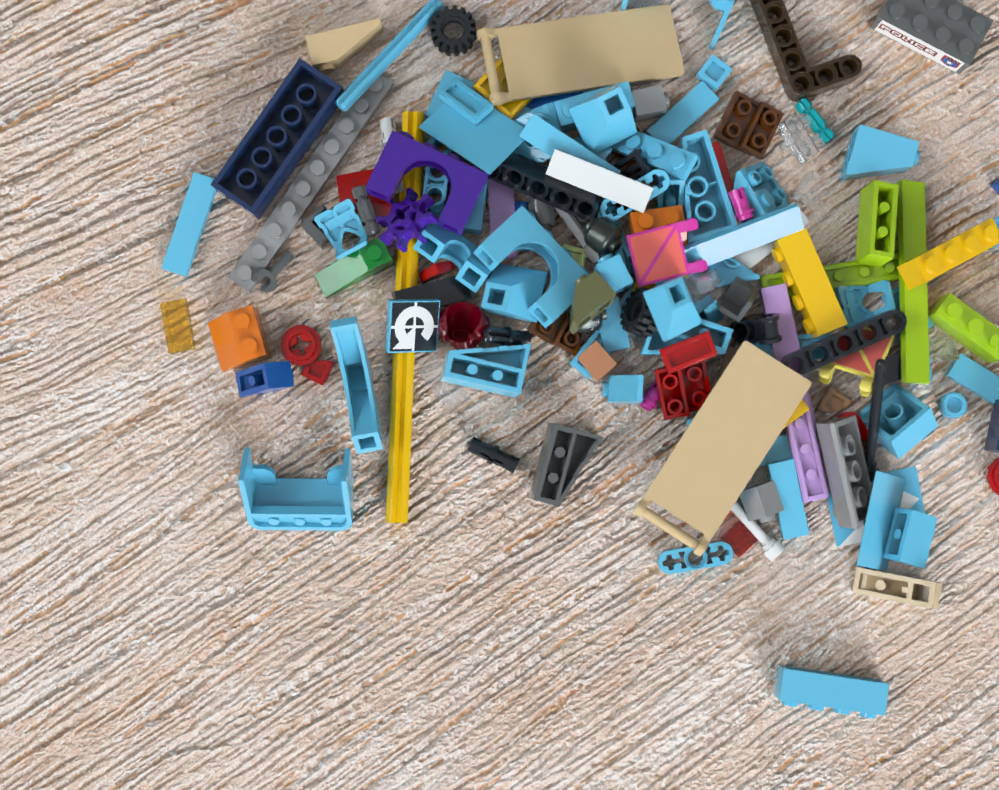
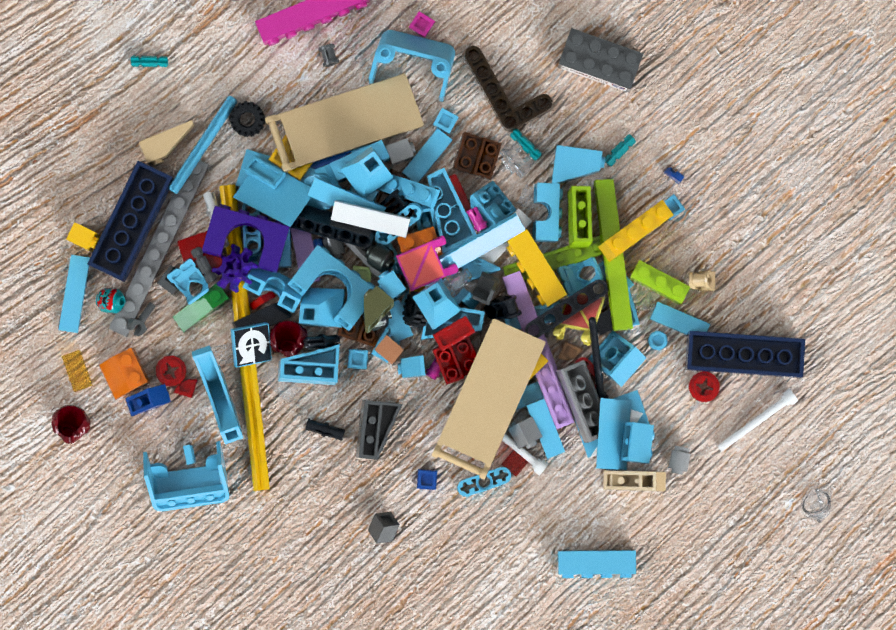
camera: 10 degrees left, 0 degrees up
(155, 393) = (70, 423): none -> dark red hair
(210, 148) = (83, 237): none -> yellow brick
(235, 239) = (110, 300): none -> teal head
(307, 460) = (189, 454): none -> medium azure tile
(550, 368) = (357, 359): none -> medium azure tile
(551, 598) = (383, 527): none -> dark grey panel
(618, 542) = (427, 479): none -> blue tile
(837, 191) = (548, 195): none -> medium azure arch
(939, 145) = (620, 150): none -> teal axle
(962, 569) = (679, 460): none -> light grey brick

